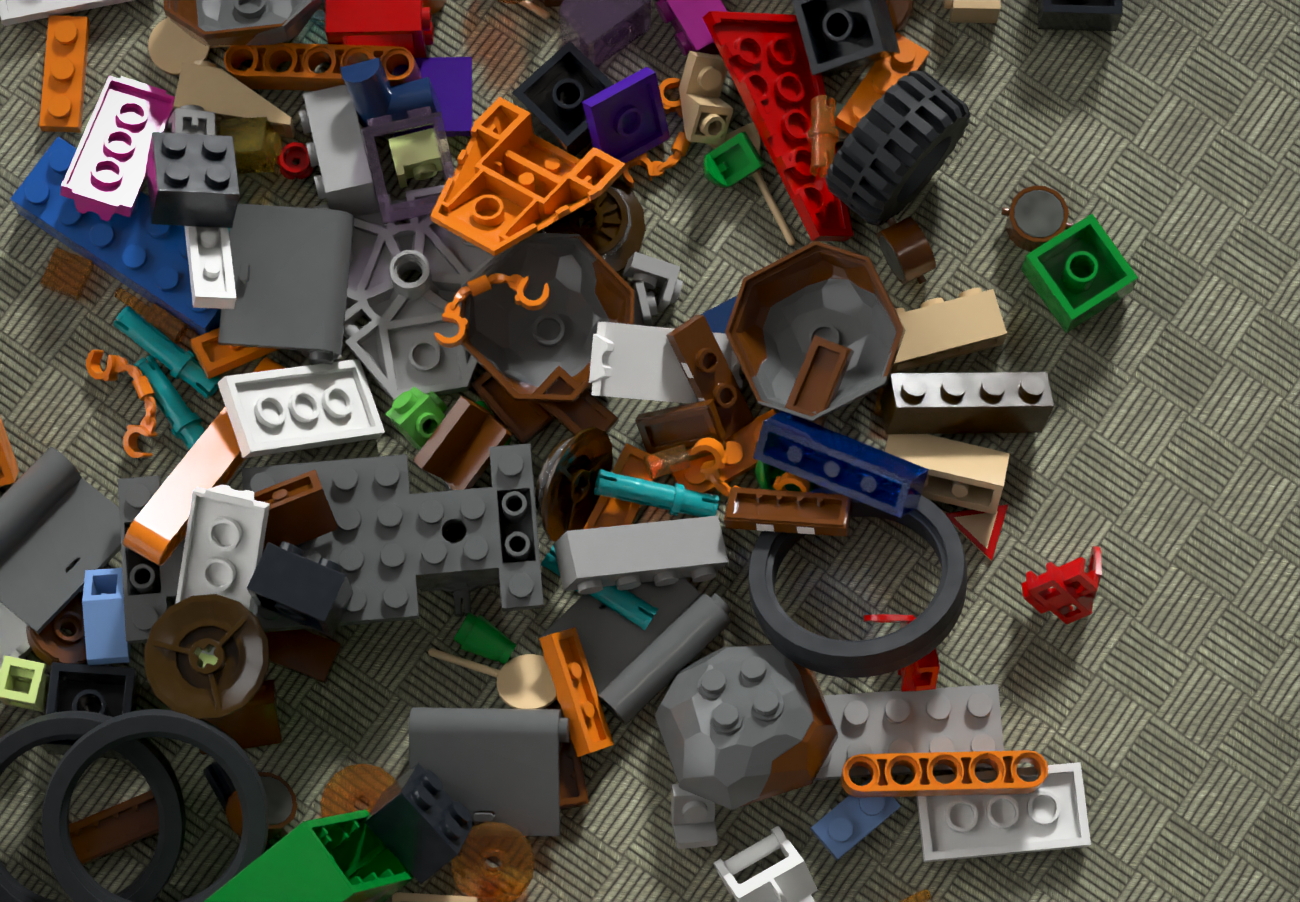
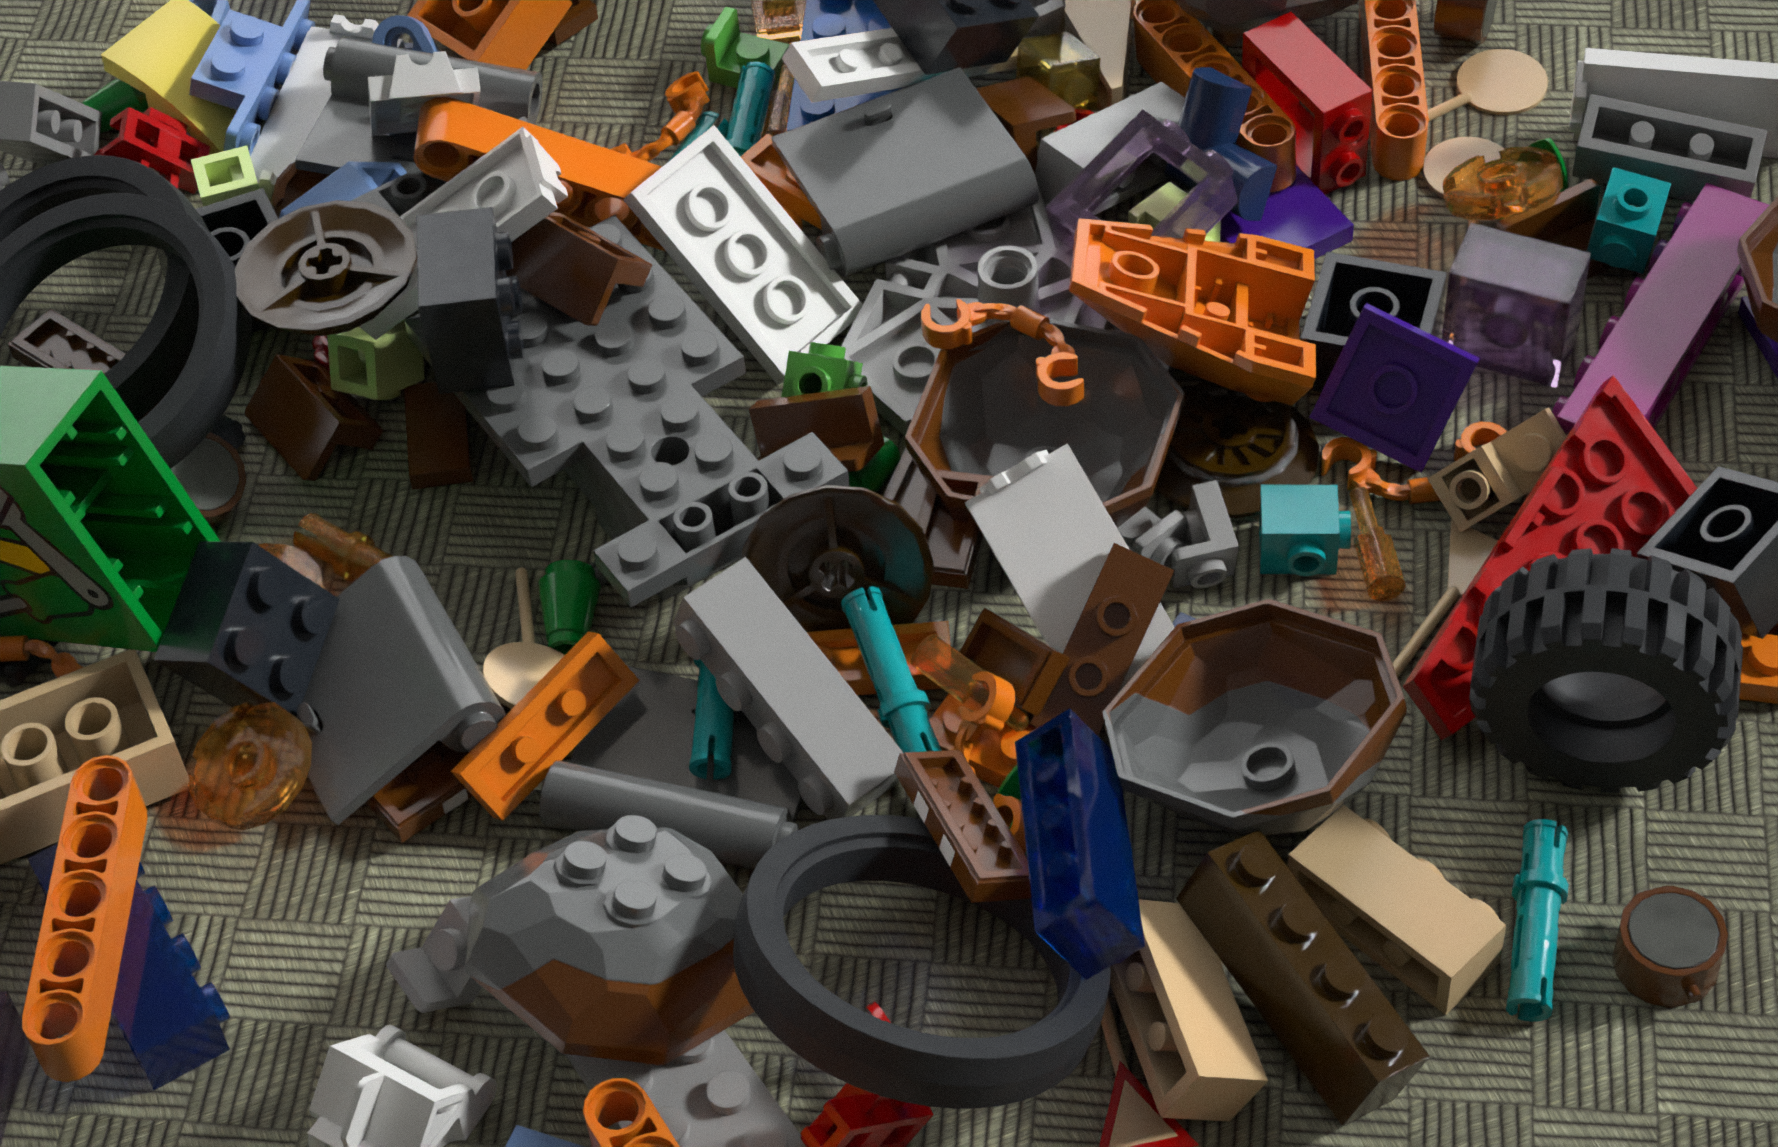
camera: 65 degrees right, 25 degrees down
(81, 534) = (398, 97): none -> white brick
(90, 314) = (730, 49): none -> bright green bracket
(278, 184) = (1025, 108): none -> reddish brown panel
(365, 740) = (347, 552): none -> clear orange pin
(677, 226) = (1301, 529): none -> teal brick
(707, 195) = (1375, 551): none -> clear orange axle
(732, 161) = (1437, 541): green plate -> none
(819, 378) = (1192, 759): reddish brown tile -> none
(906, 250) = (1478, 797): reddish brown piece -> none
(983, 268) = (1539, 897): none -> teal pin
(1079, 273) = (1625, 1032): green brick -> none

